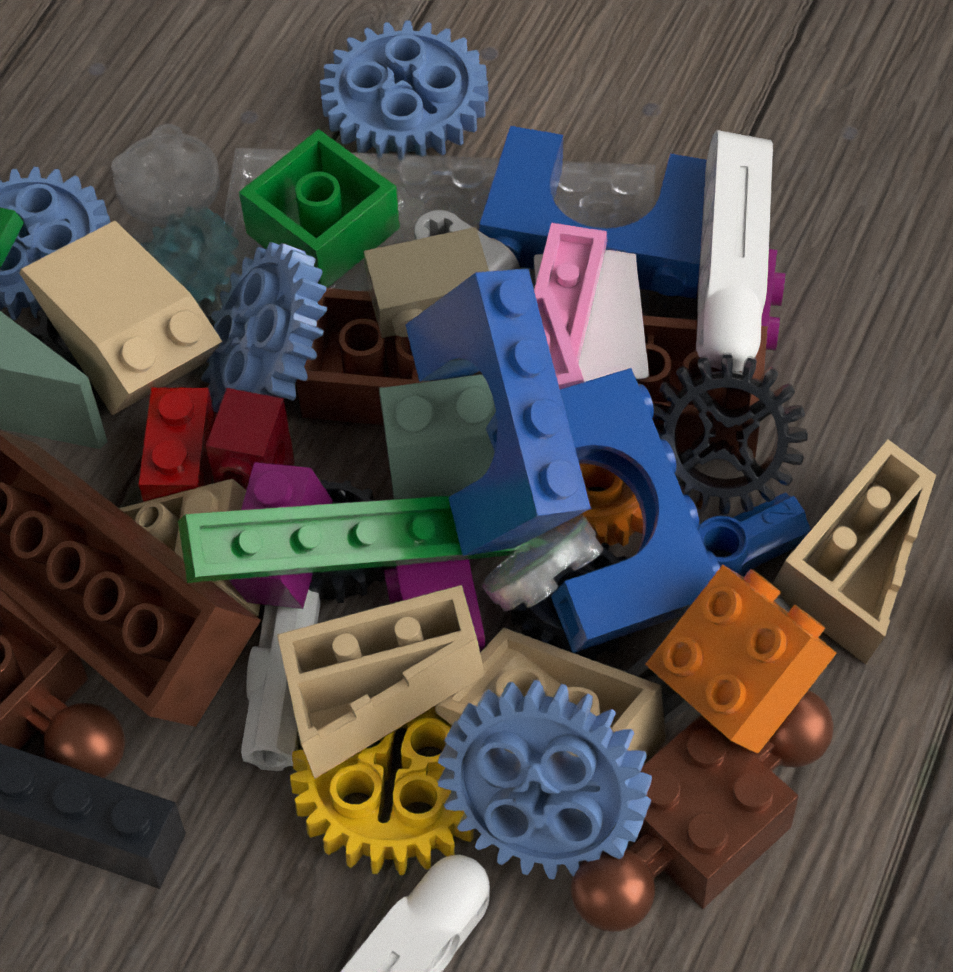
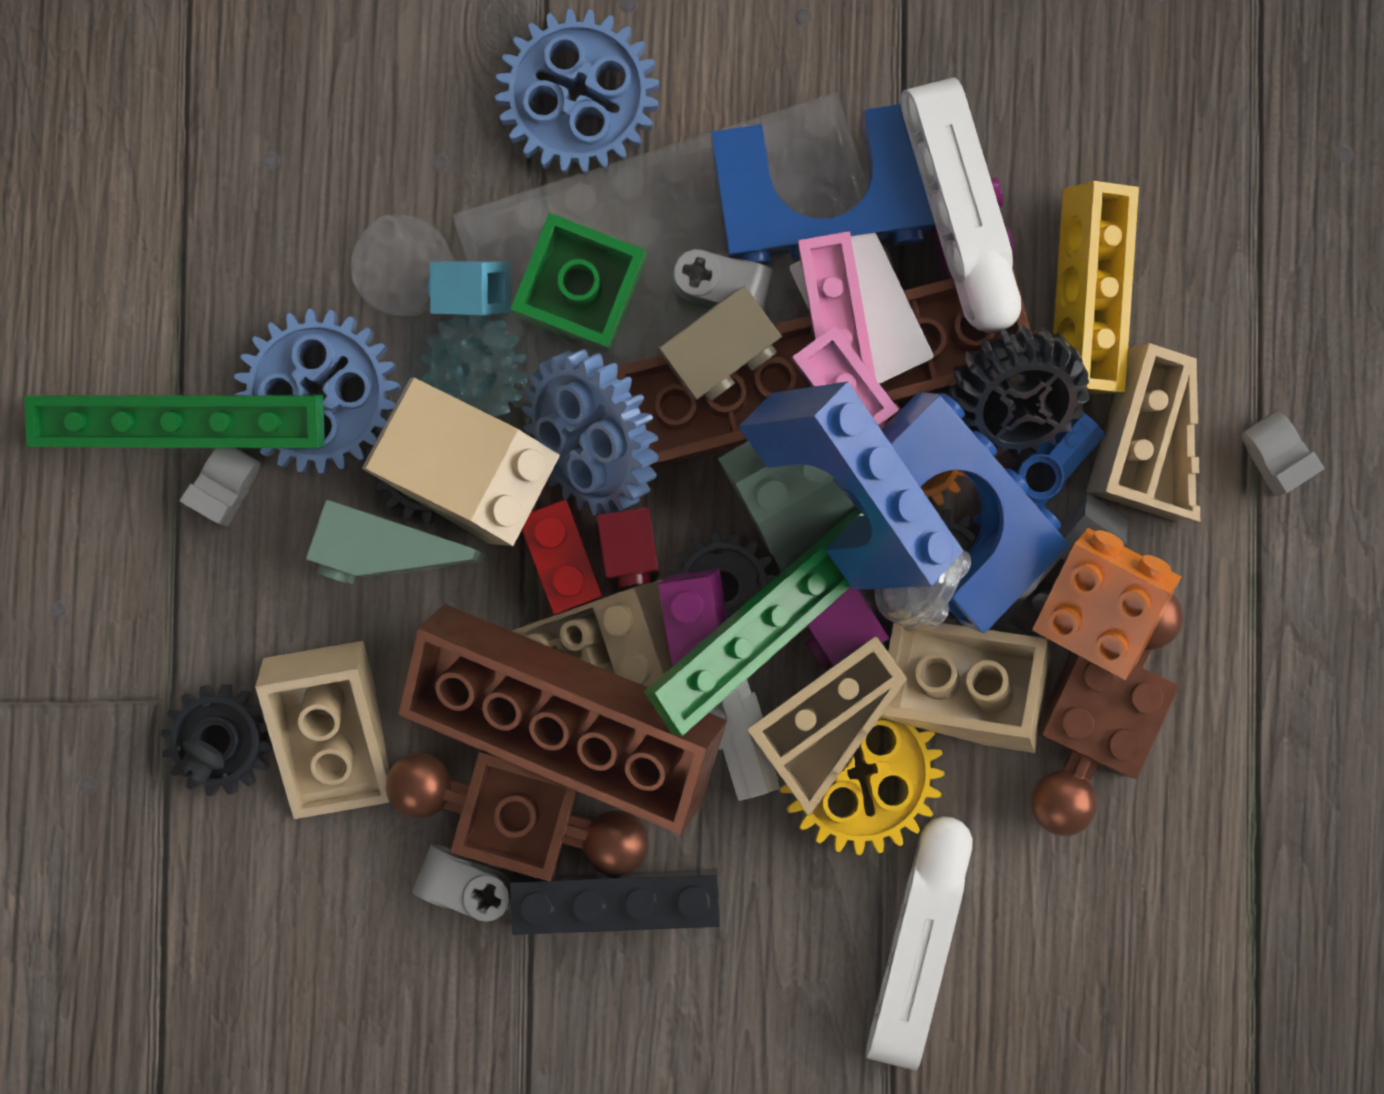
camera: 25 degrees left, 30 degrees up
(212, 182) = (469, 287): none -> medium azure brick
(532, 796) = (998, 765): medium blue gear -> none
(852, 392) = (1097, 278): none -> yellow brick

